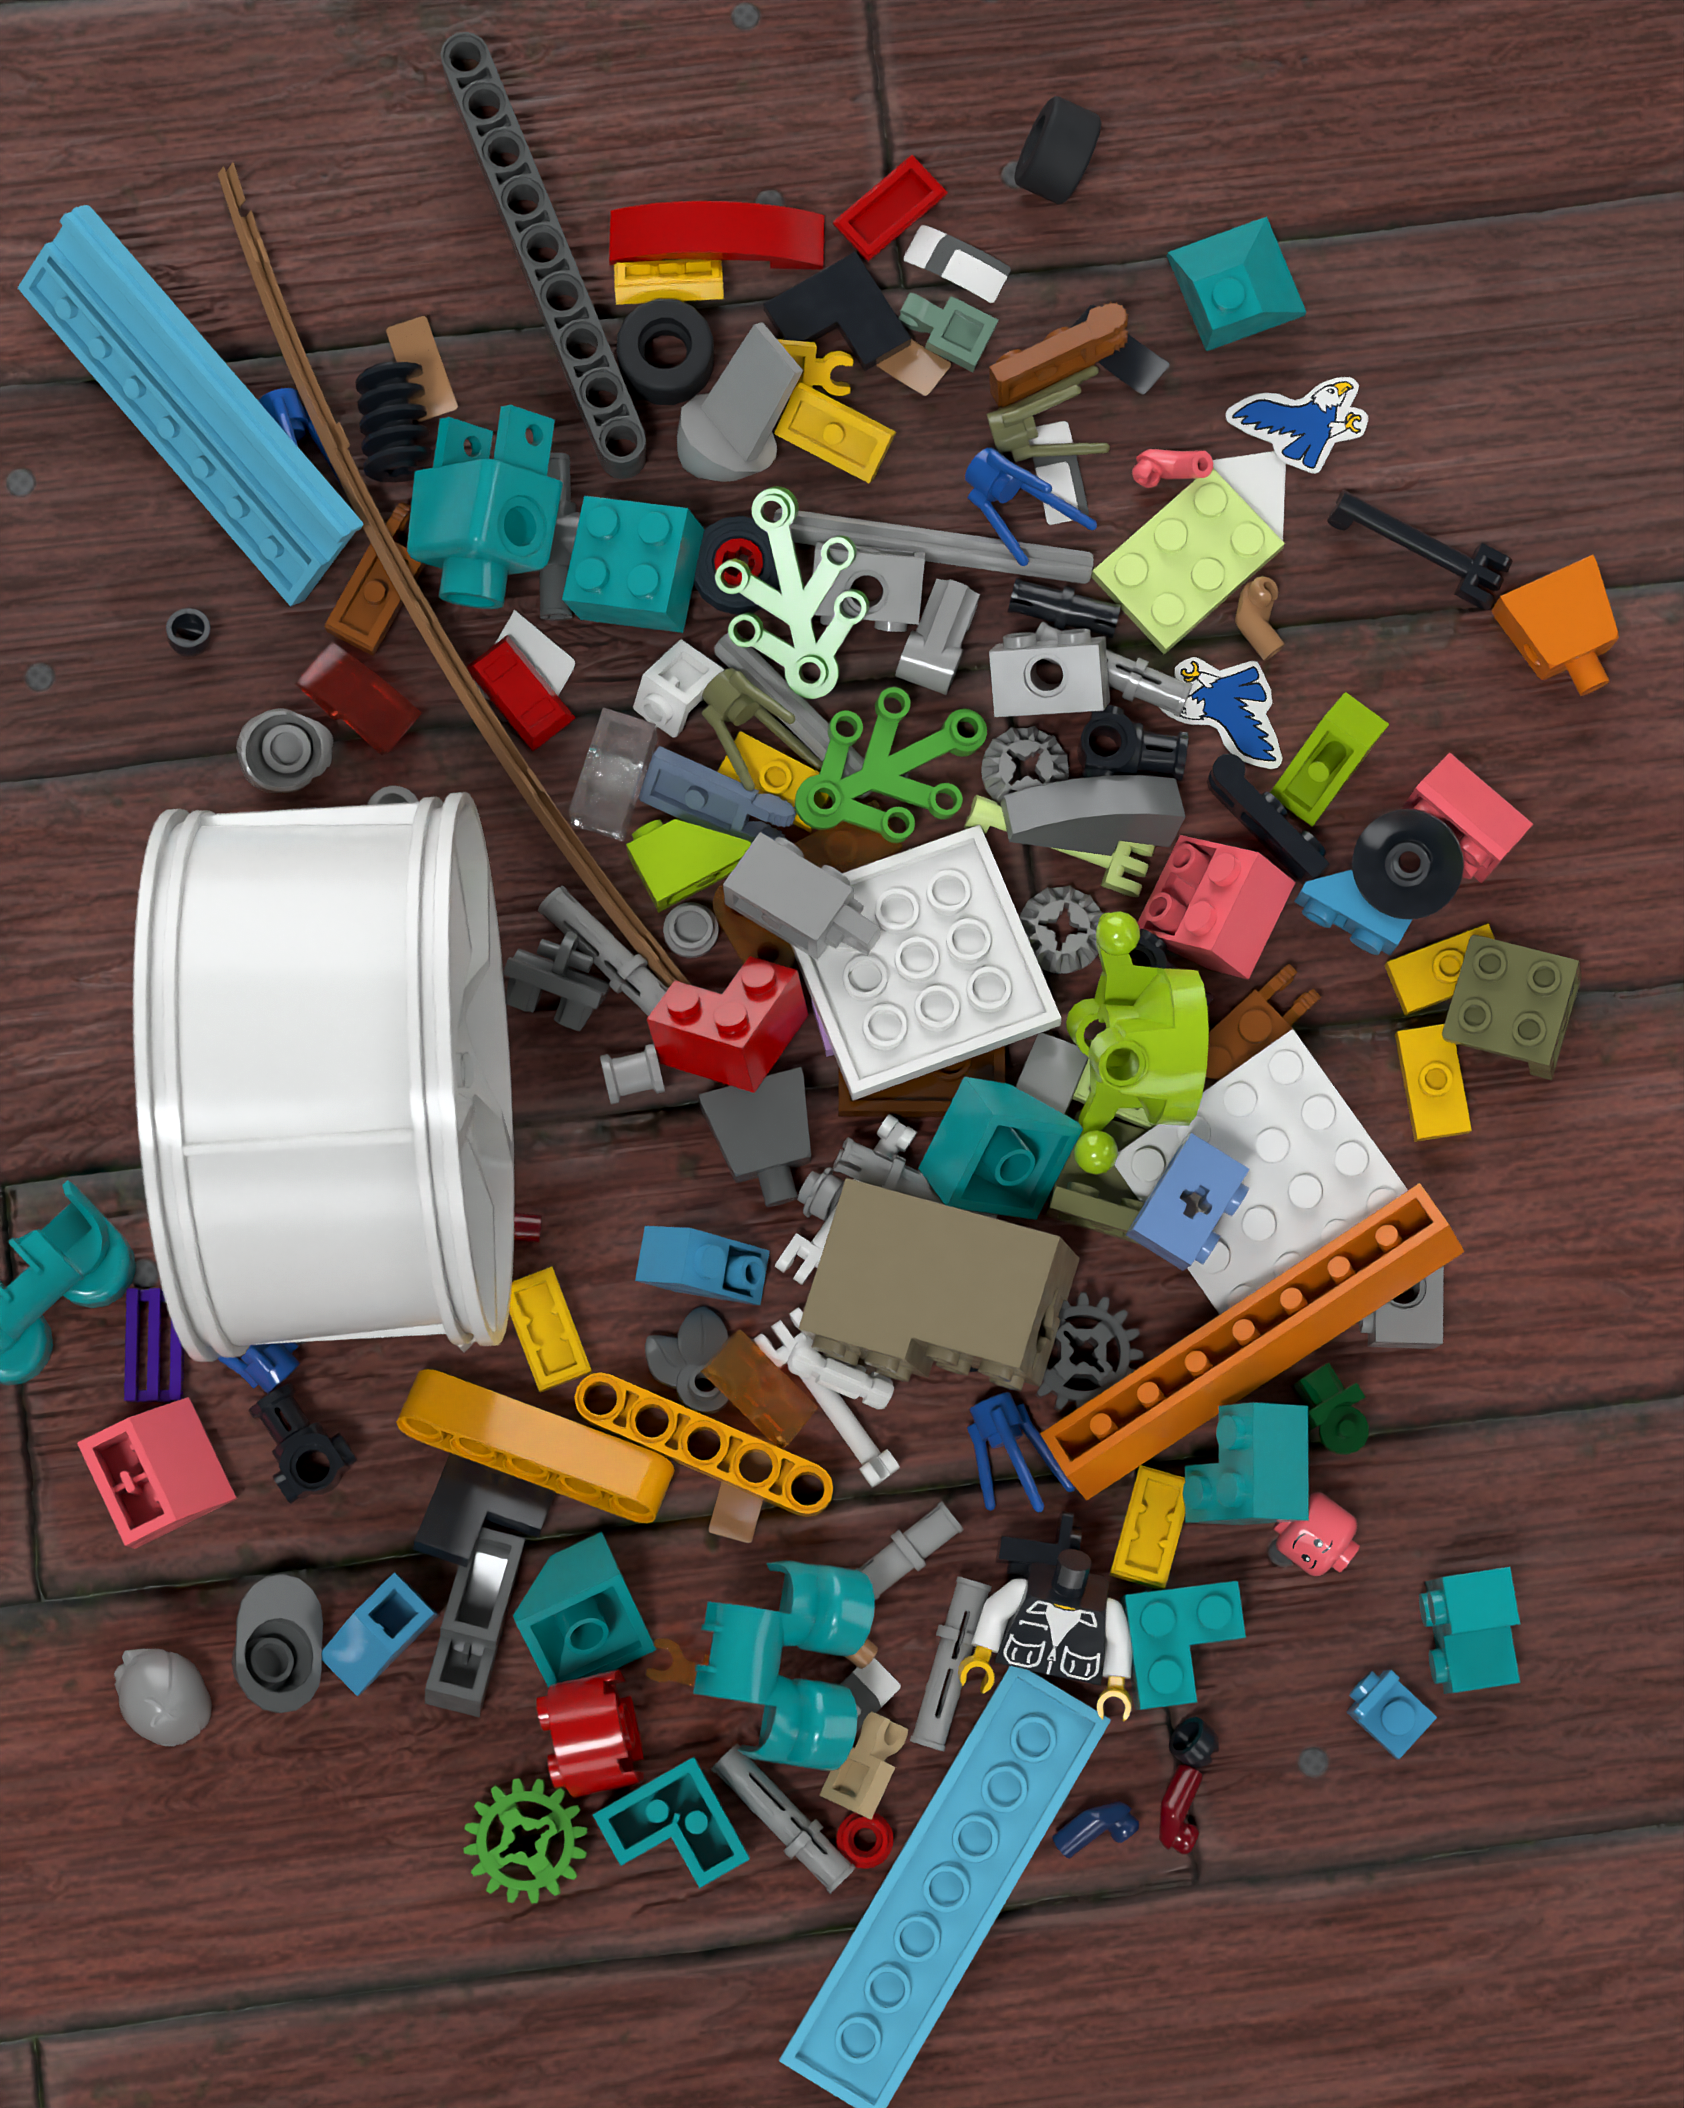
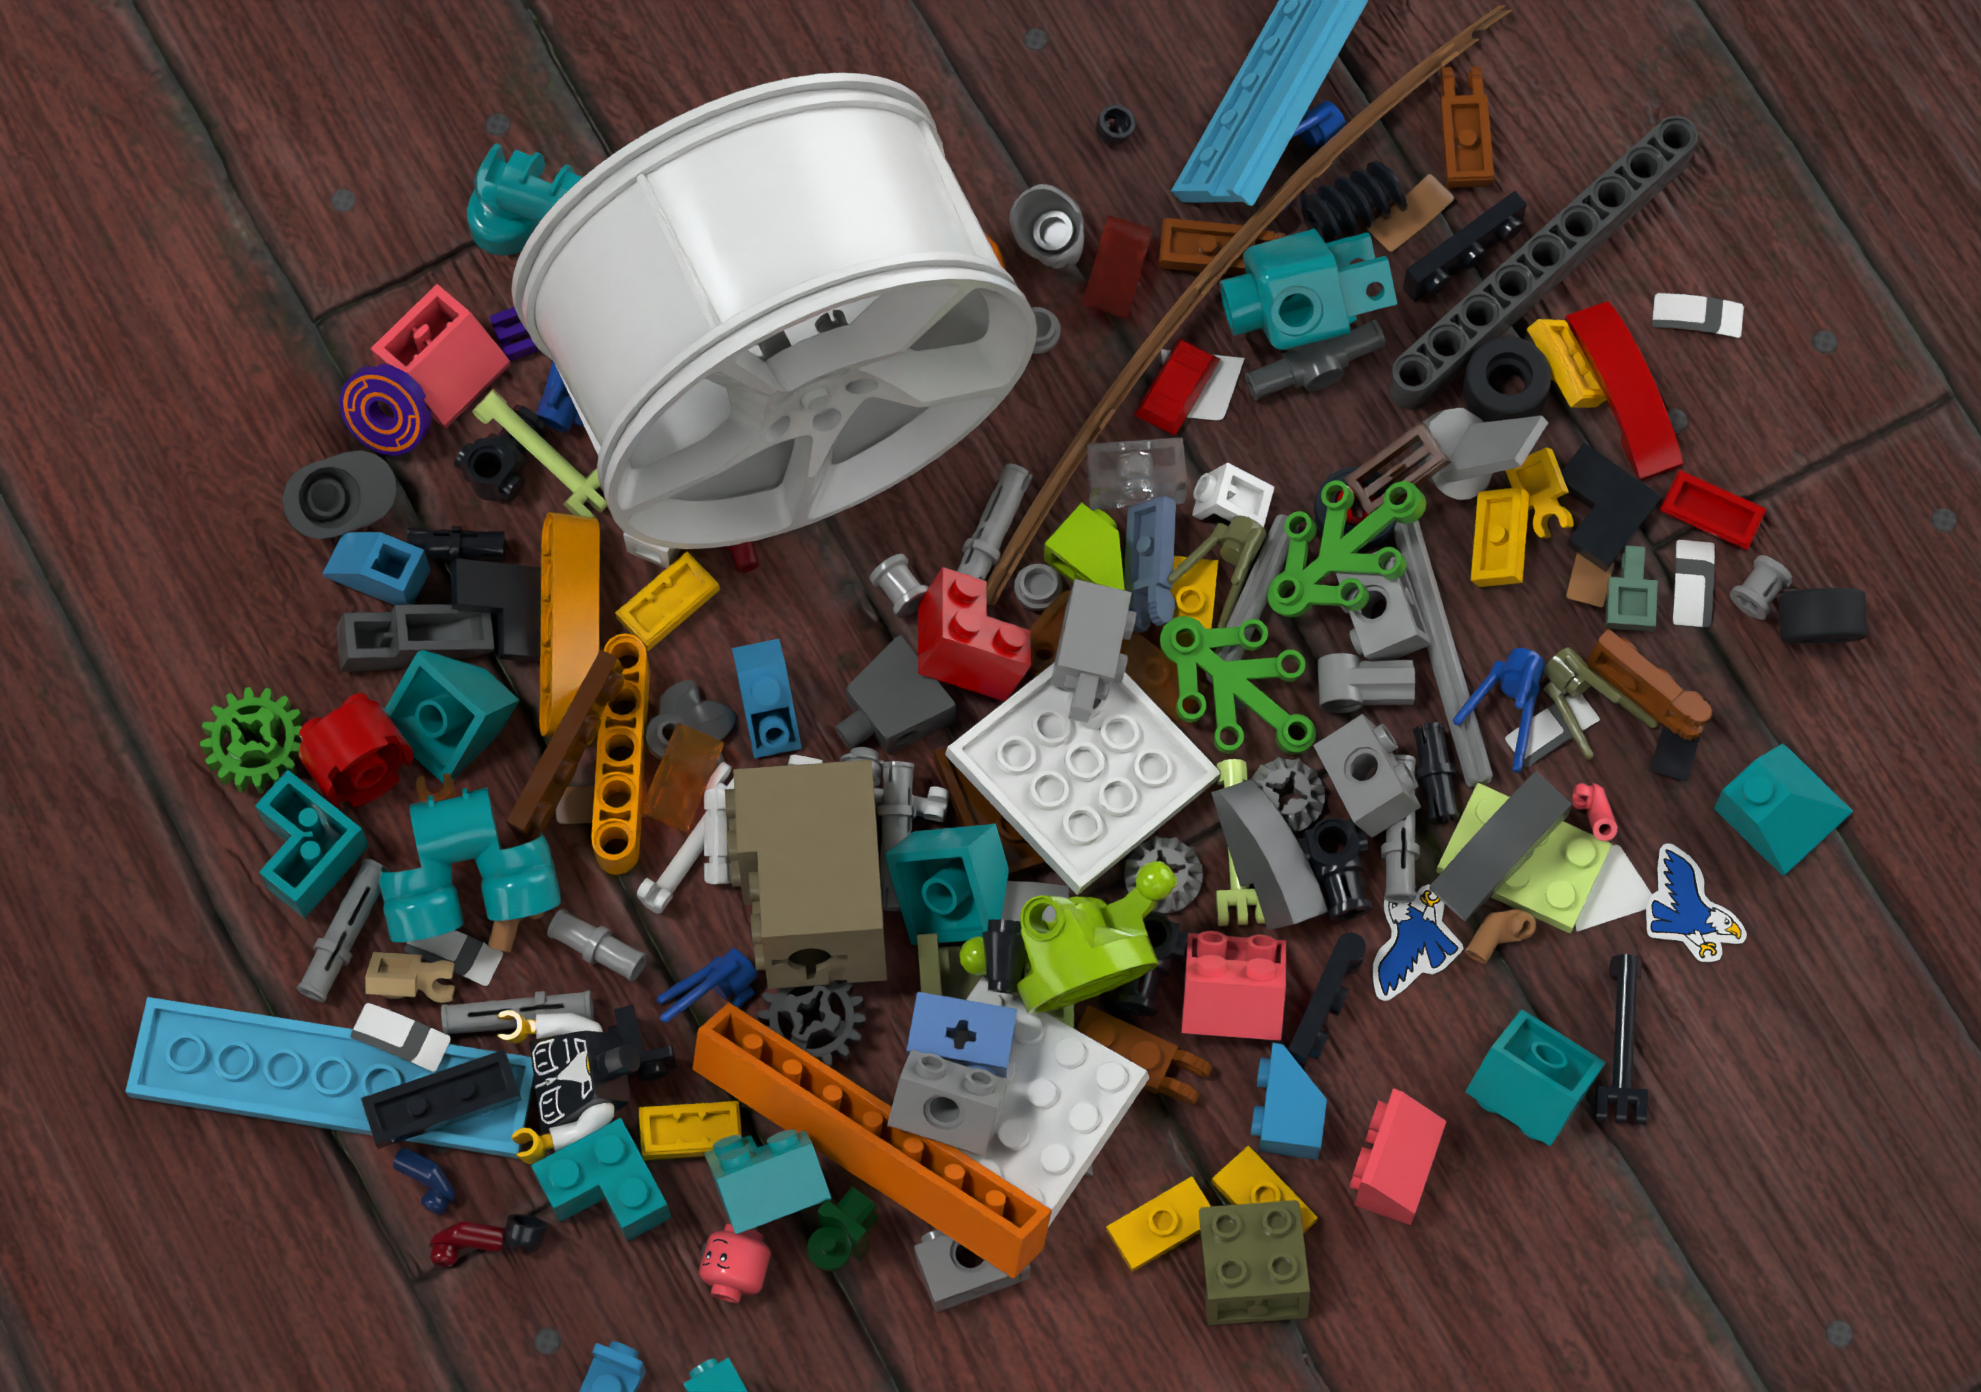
camera: 75 degrees right, 10 degrees down
(162, 1696) = (269, 434): light grey hair -> none
(216, 1570) = (366, 420): none -> dark purple tile
(354, 269) = (1466, 132): none -> dark orange hinge
(374, 1372) = (583, 488): none -> yellowish green hinge
(384, 1535) = (459, 543): none -> black pin
(494, 325) = (1465, 247): none -> black plate
(533, 973) = (958, 499): dark grey hips -> none
(633, 564) = (1315, 421): teal brick -> none
(662, 128) = (1697, 314): none -> white sticker
(713, 1515) = (561, 758): none -> reddish brown wing
(721, 456) = (1418, 477): none -> reddish brown tile
(869, 1858) = (339, 991): red plate -> none
(933, 1799) = (401, 1036): none -> white sticker
(996, 197) = (1761, 587): none -> light grey bush
(1027, 1779) = (441, 1099): none -> black plate
(1116, 1122) = (1004, 955): none -> black cone
(1184, 573) = (1501, 846): none -> dark grey slope
(1261, 1244) = (947, 1102): none -> light grey brick
(1329, 758) = (1403, 1031): lime slope -> none
(1388, 883) = (1314, 1104): black dish -> none
(1428, 646) = (1534, 1077): none -> teal slope
(1562, 624) = (1607, 1182): orange torso -> none

